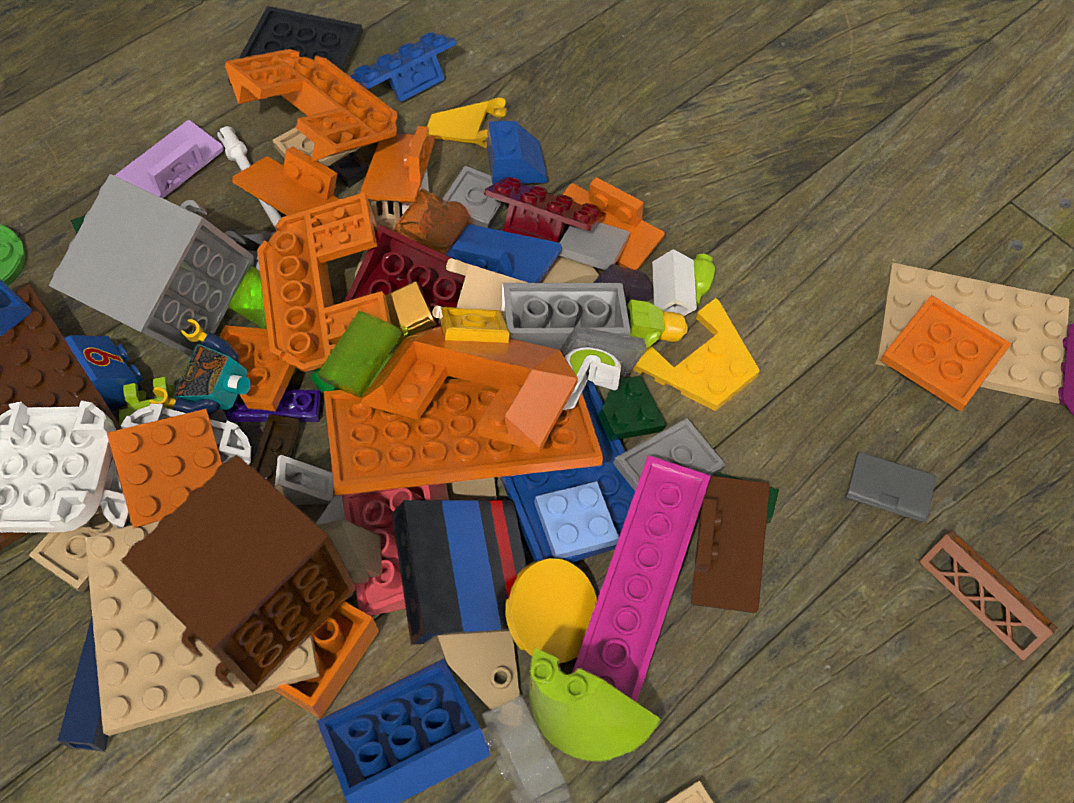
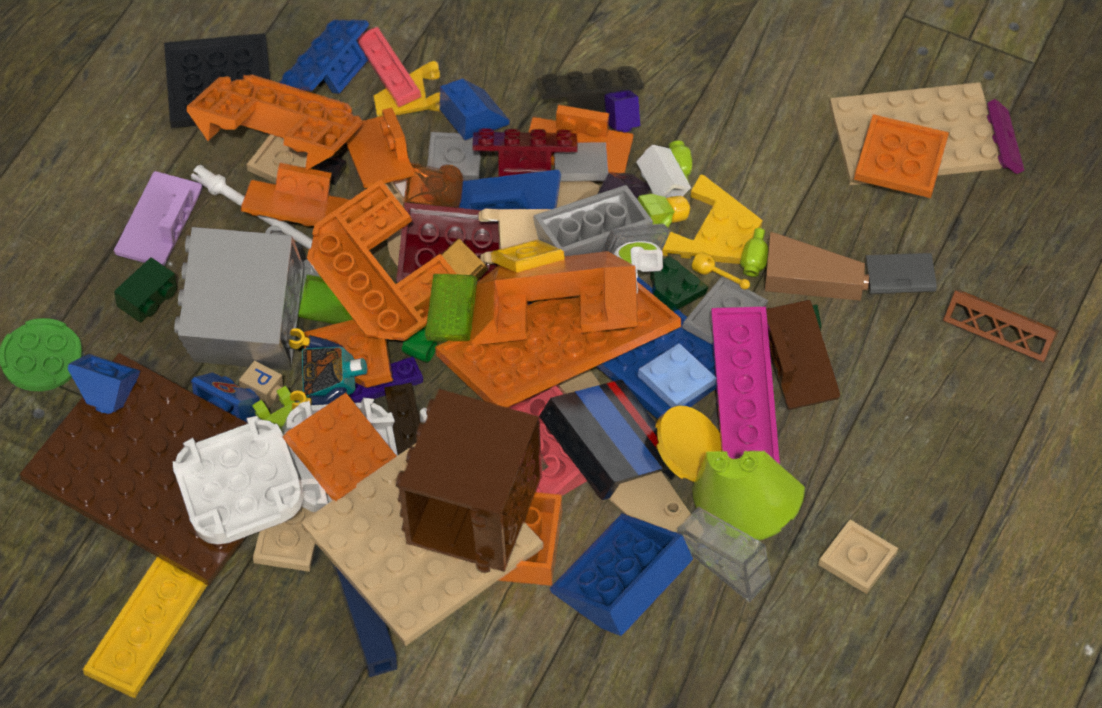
camera: 25 degrees left, 5 degrees down
(153, 363) = (263, 382): none -> tan brick
(458, 91) = (388, 67): none -> coral tile
(643, 175) = (589, 89): none -> clear smoke bracket
(663, 204) = (623, 110): none -> dark purple brick
(674, 398) = (704, 264): none -> yellow hinge
(733, 406) = (754, 254): none -> lime plant
(789, 448) = (812, 271): none -> medium nougat slope

